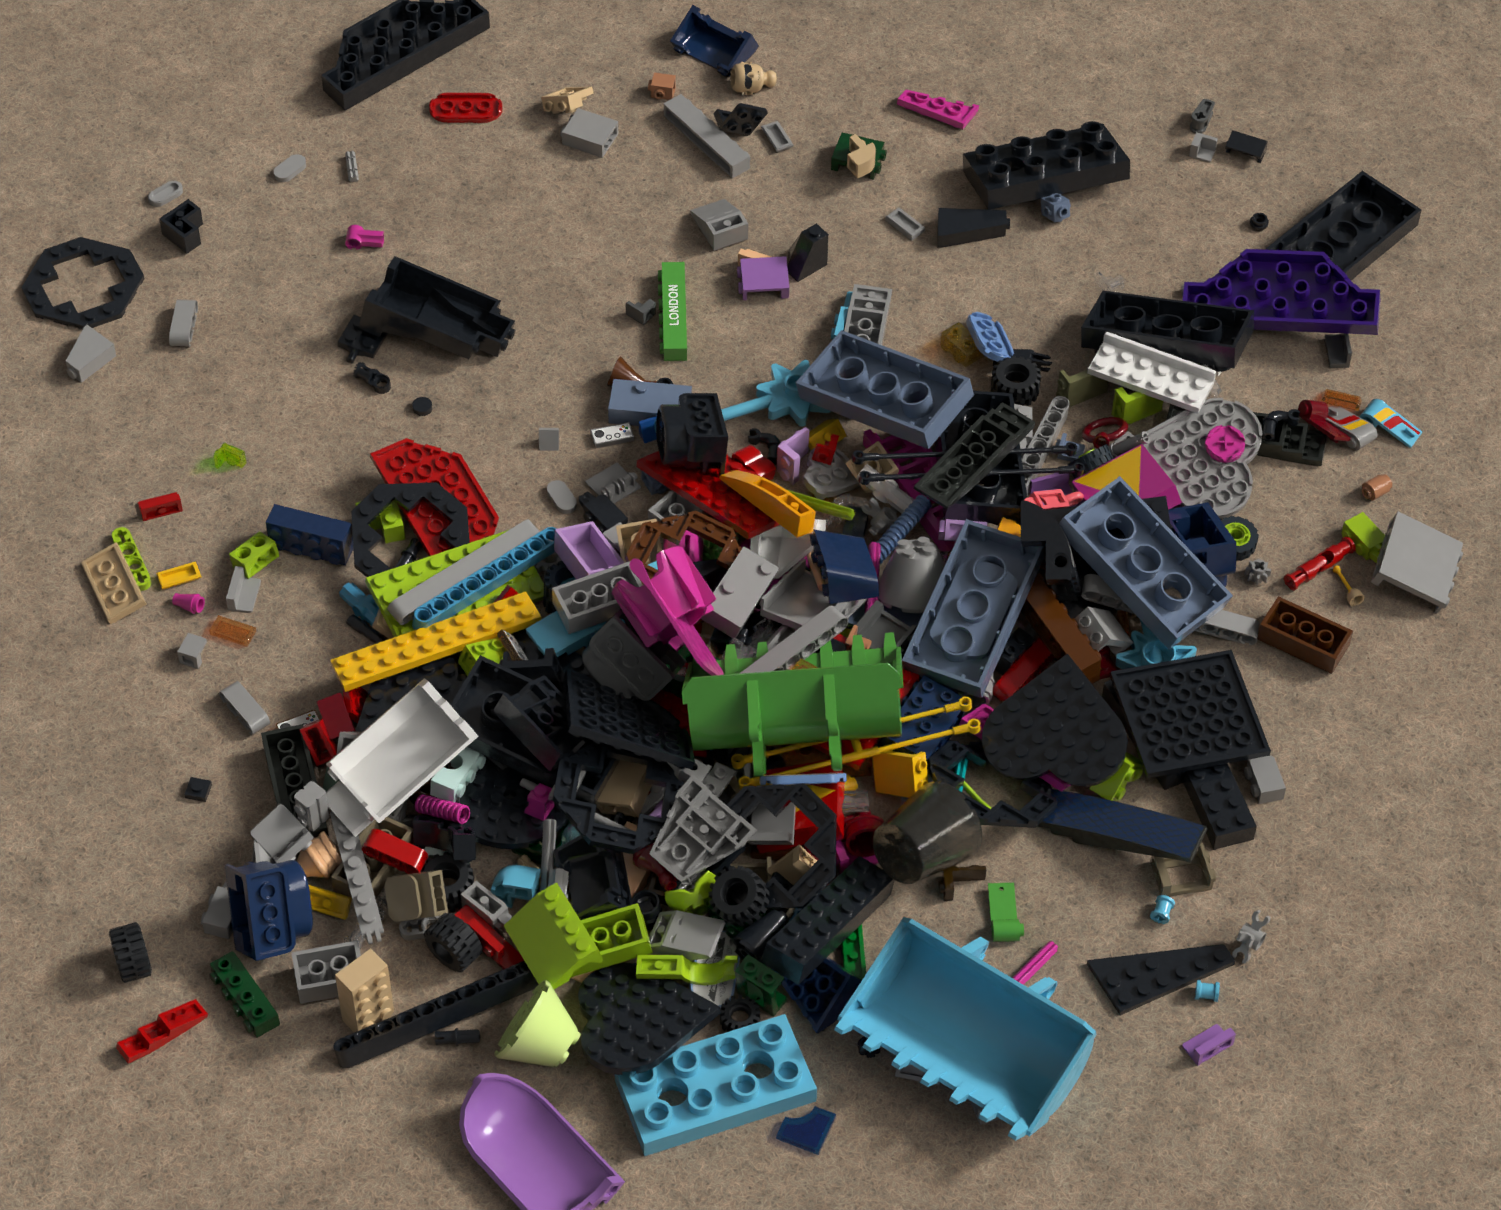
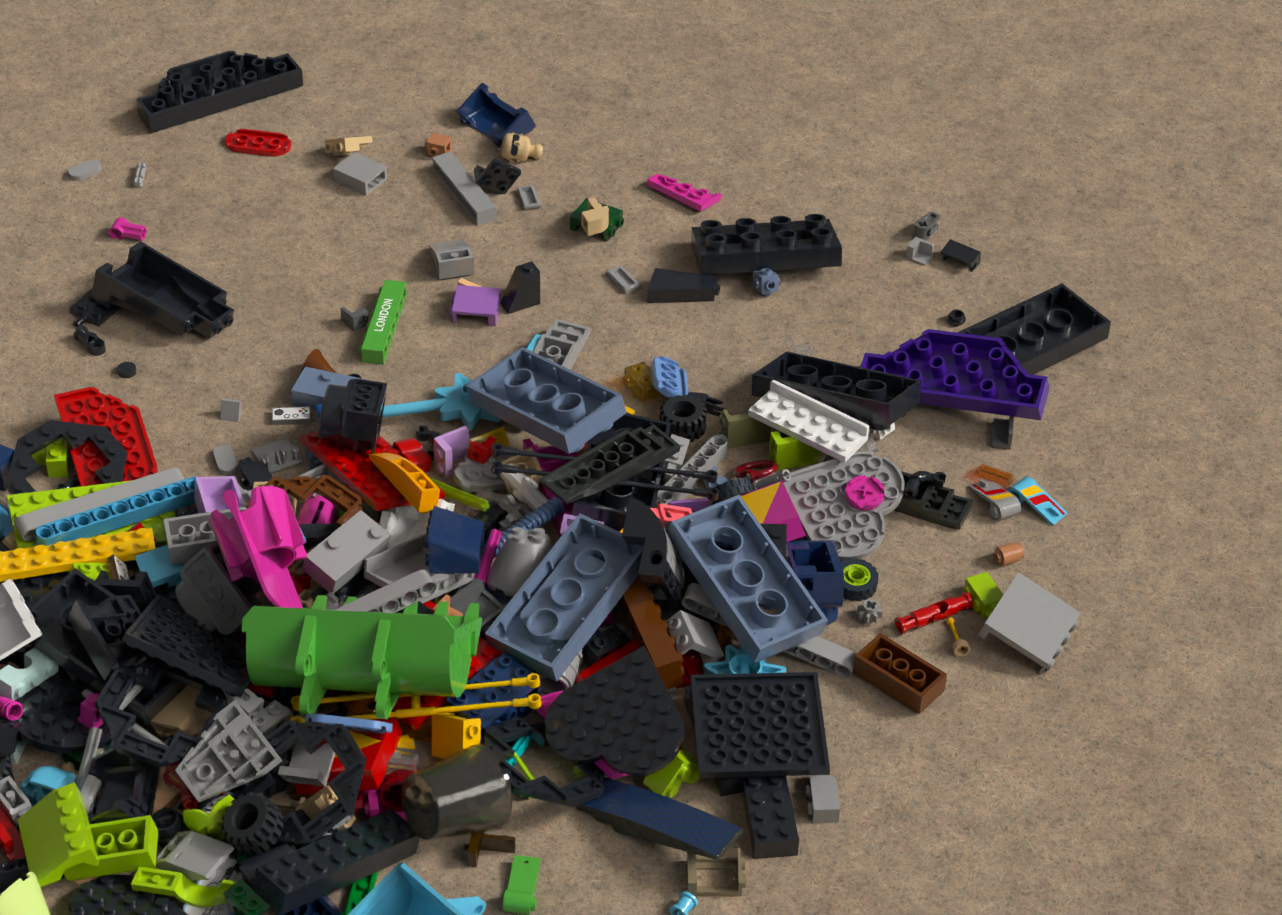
camera: 10 degrees right, 10 degrees down
(1315, 413) = (965, 483): dark red door -> none

